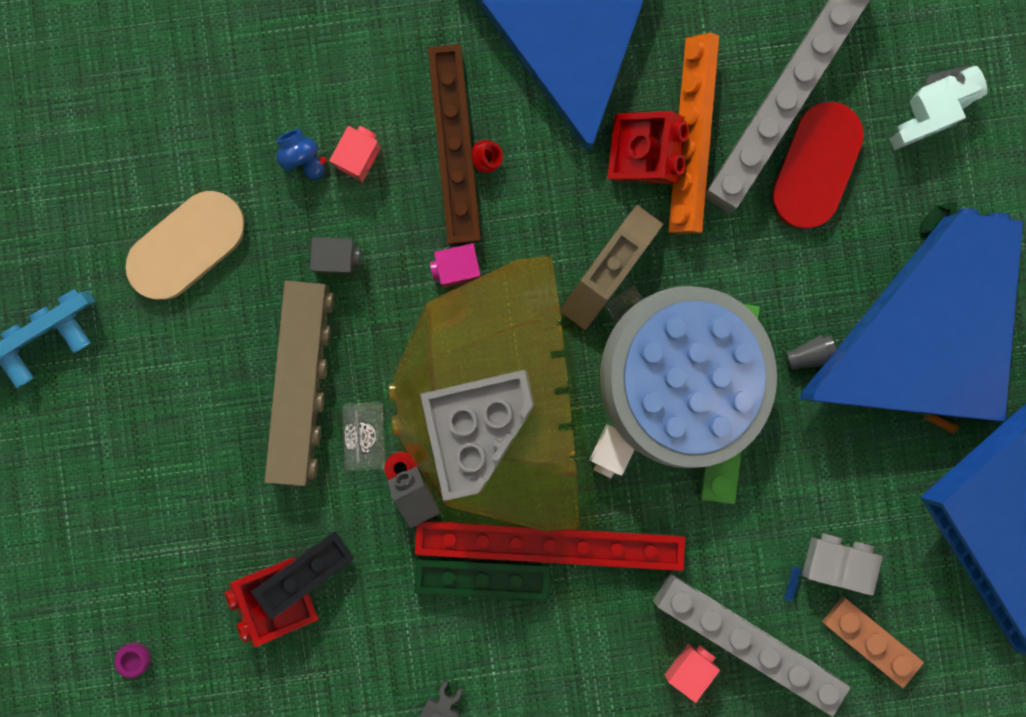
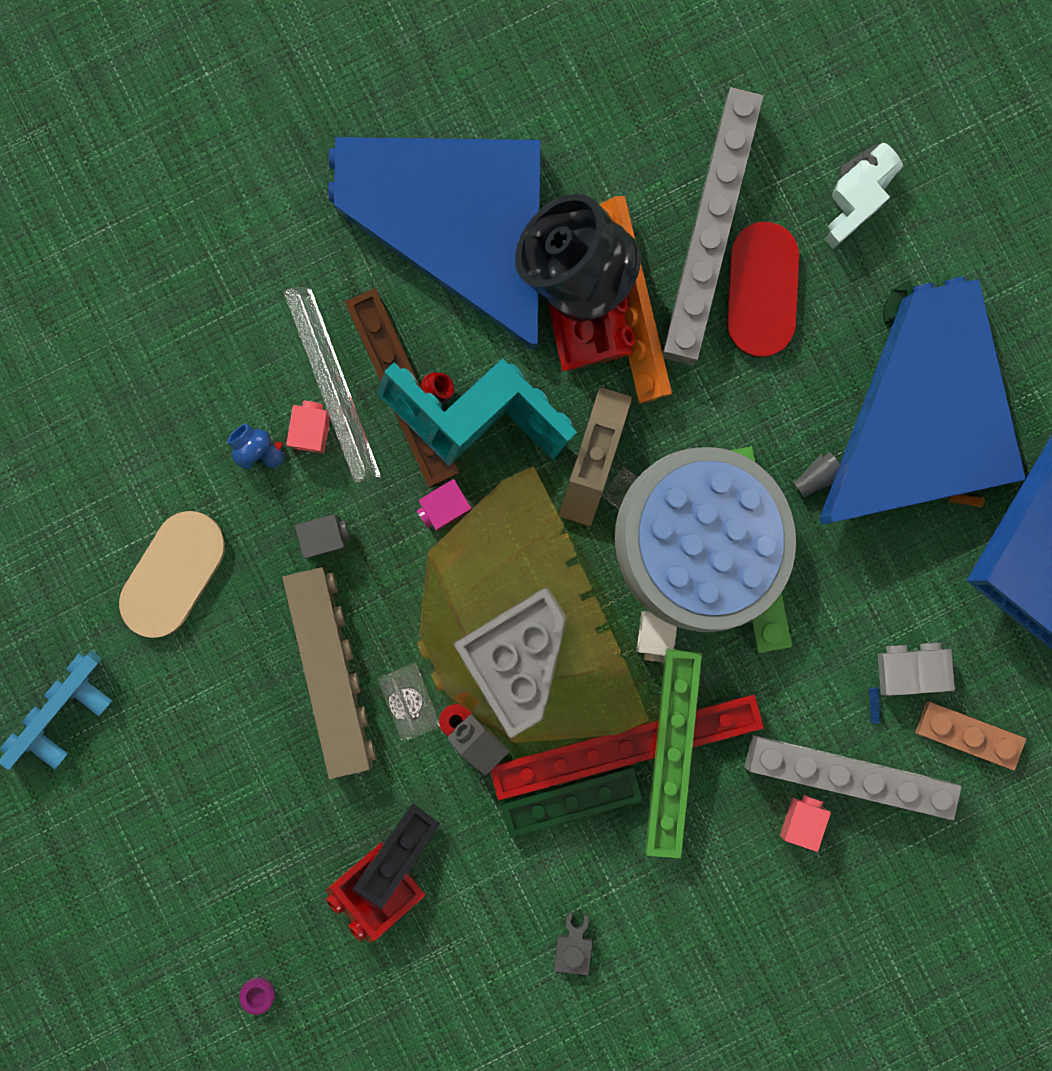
camera: 15 degrees left, 0 degrees up
(390, 119) = (332, 384): none -> clear tile
(516, 186) = (457, 428): none -> teal bracket
(592, 565) = (673, 753): none -> bright green plate
(658, 74) = (578, 257): none -> black piece

